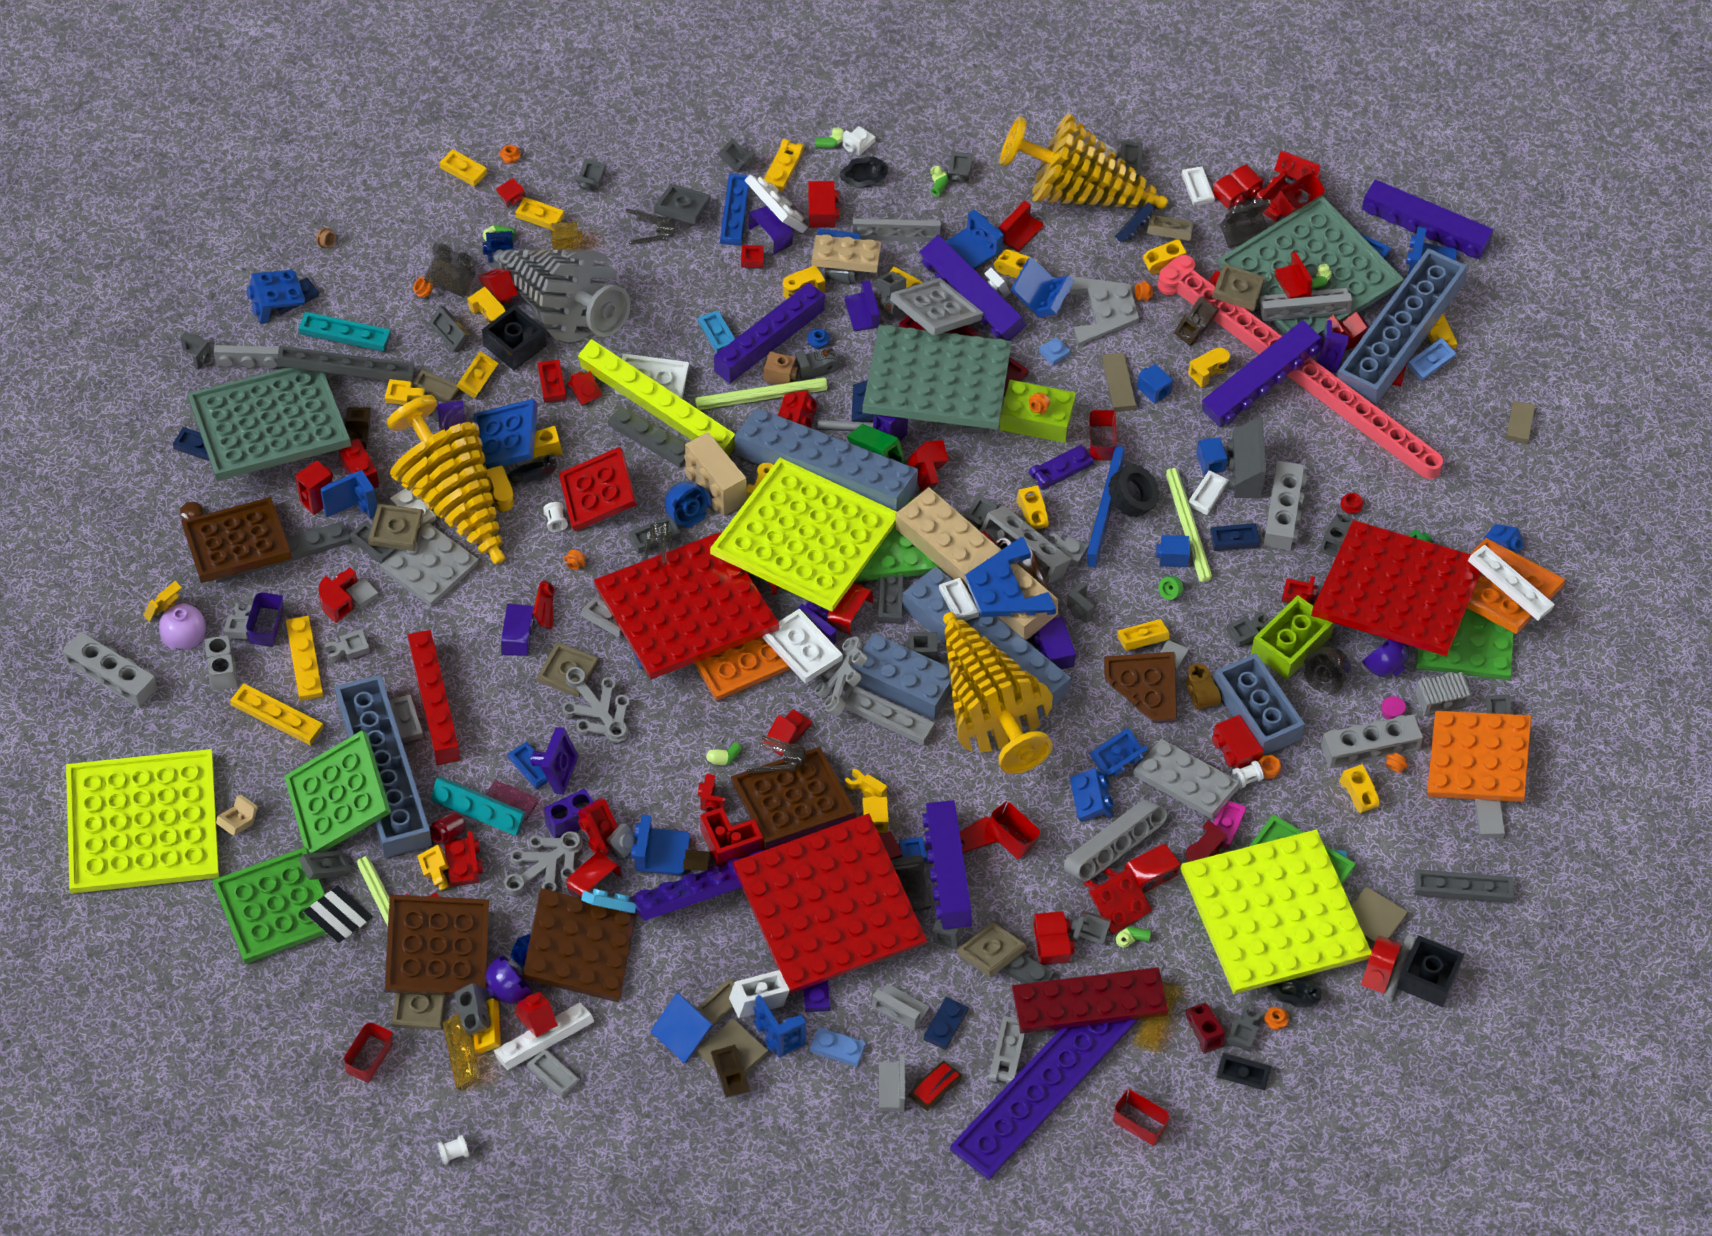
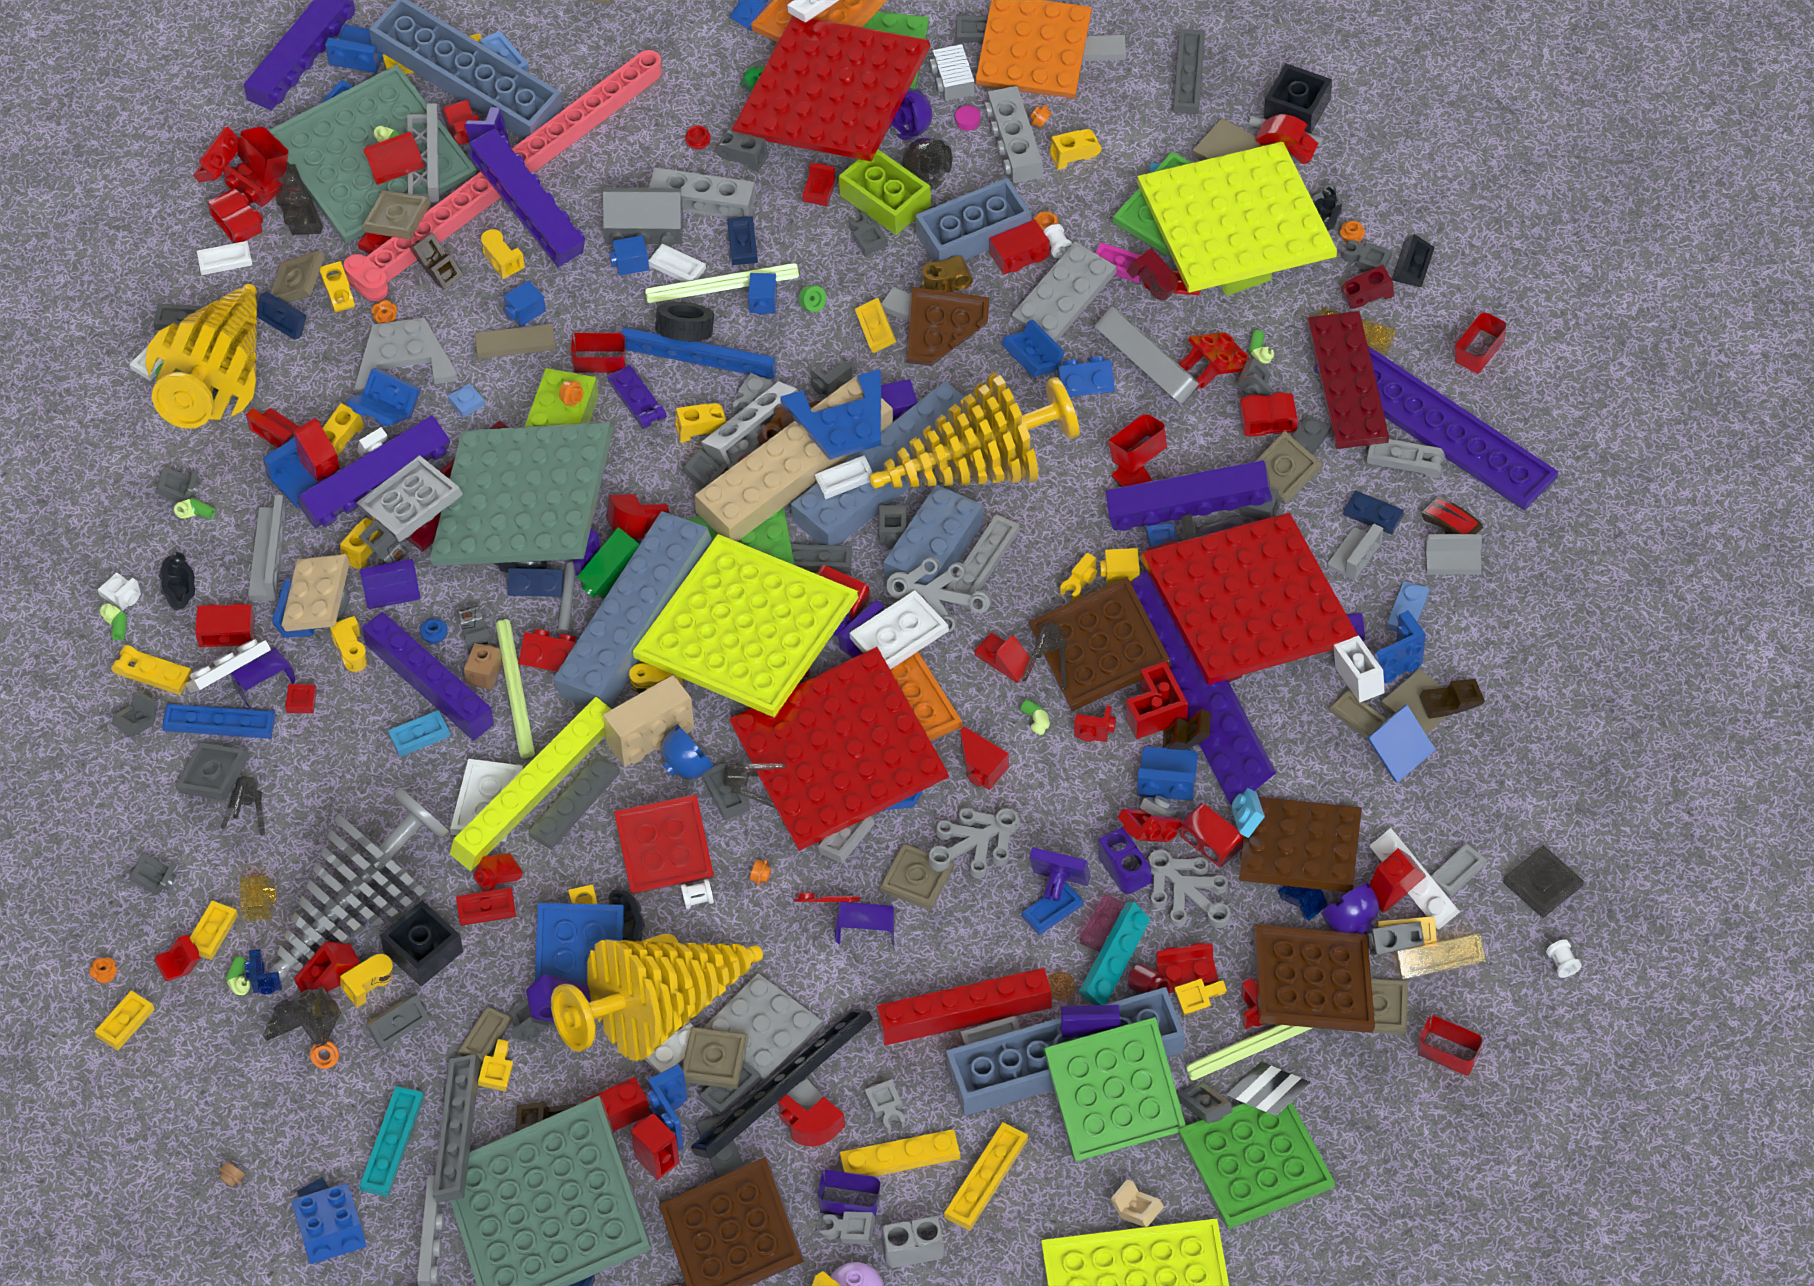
camera: 85 degrees left, 0 degrees up
(369, 571) = (781, 1083): none -> black tile
(396, 771) = (1088, 1020): none -> dark purple panel
(455, 770) = (1061, 986): none -> clear orange tile
(477, 374) = (472, 986): yellow plate -> none
(535, 1139) = (1543, 881): none -> clear smoke plate
(678, 711) = (982, 759): none -> red slope
(983, 244) = (316, 450): none -> red slope
(1152, 864) = (1182, 319): red piece -> none

